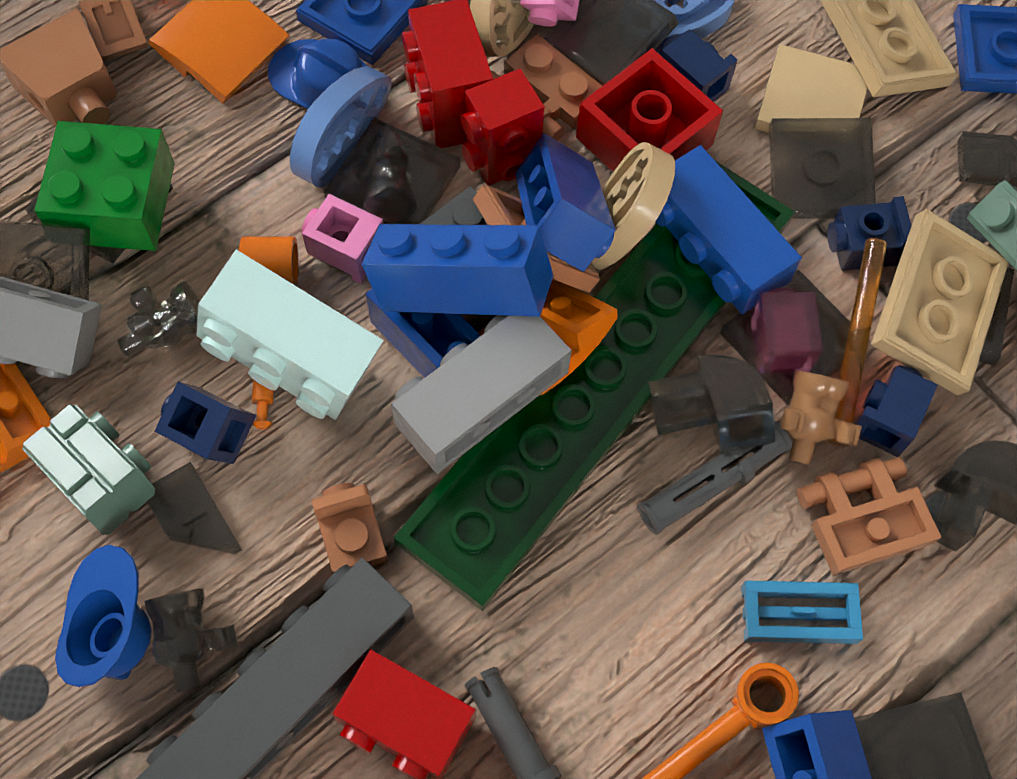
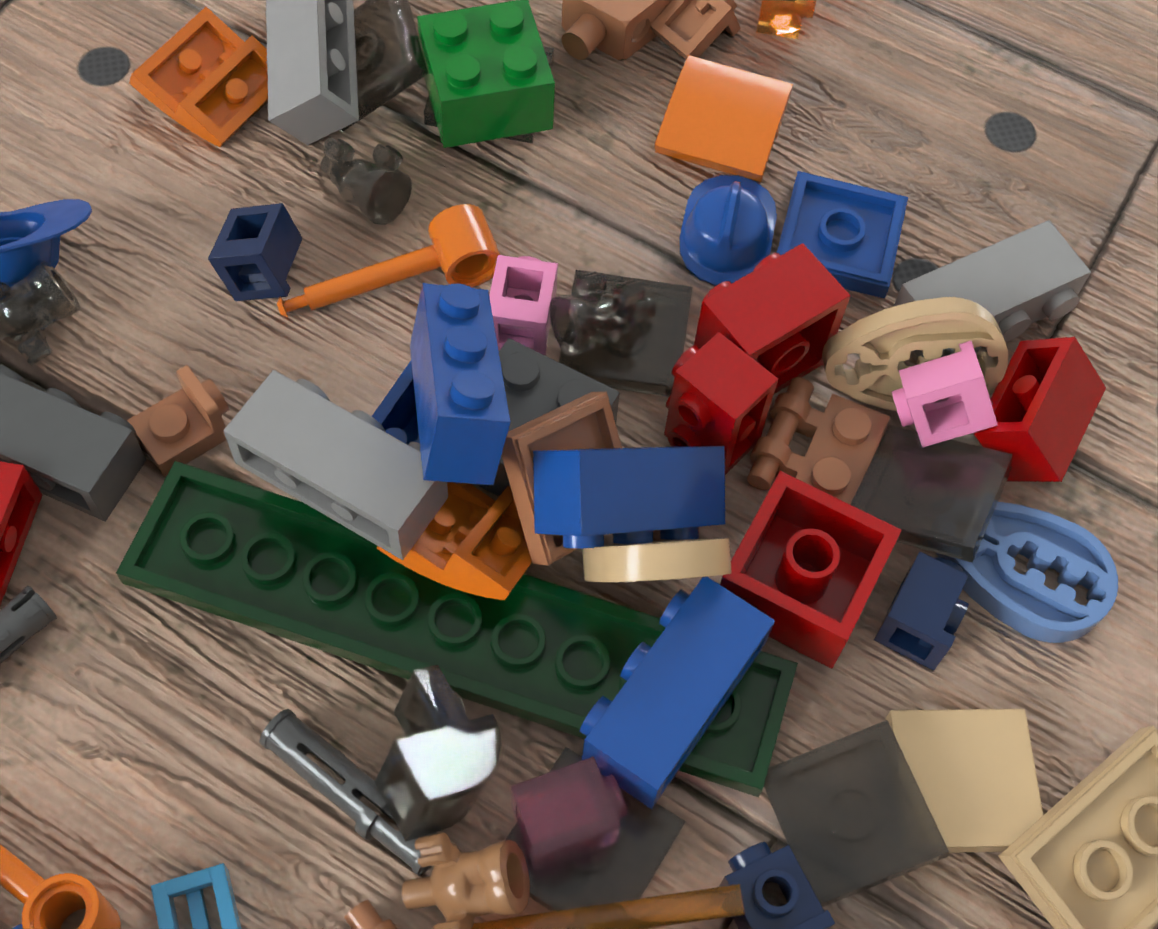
camera: 70 degrees right, 5 degrees down
(90, 468) = (175, 172): brick -> none
(190, 512) = (167, 279): clear smoke tile -> none
(284, 336) = (351, 271): light aqua brick -> none
(337, 123) = (653, 243): medium blue piece -> none

